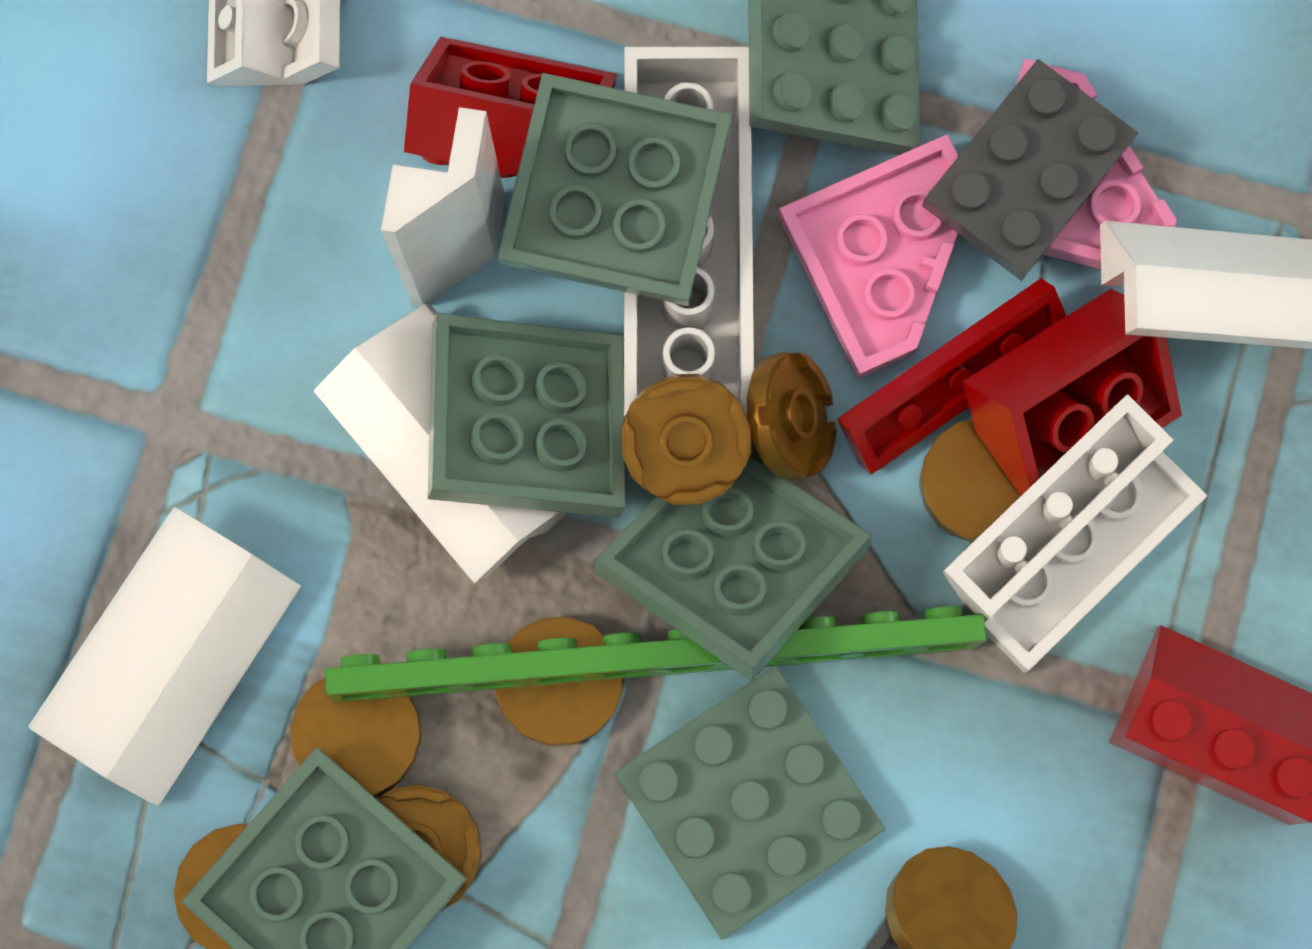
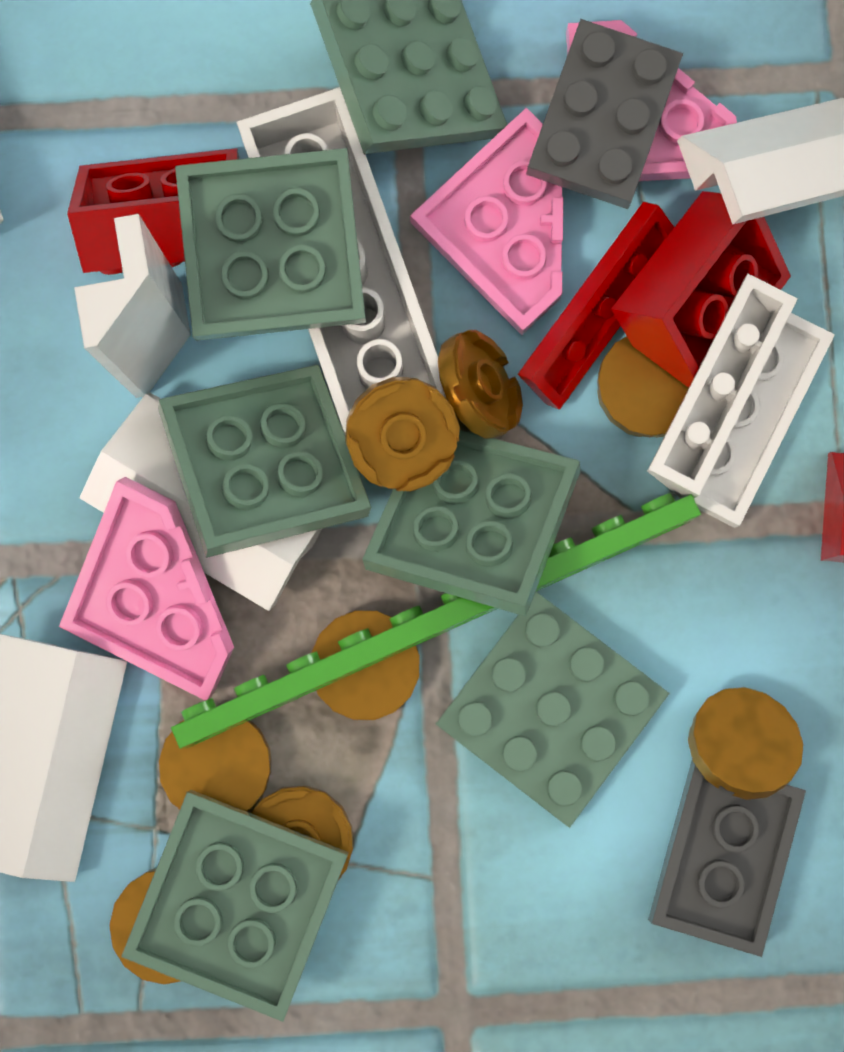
camera: 20 degrees left, 5 degrees up
(351, 520) = (148, 594): none -> bright pink plate

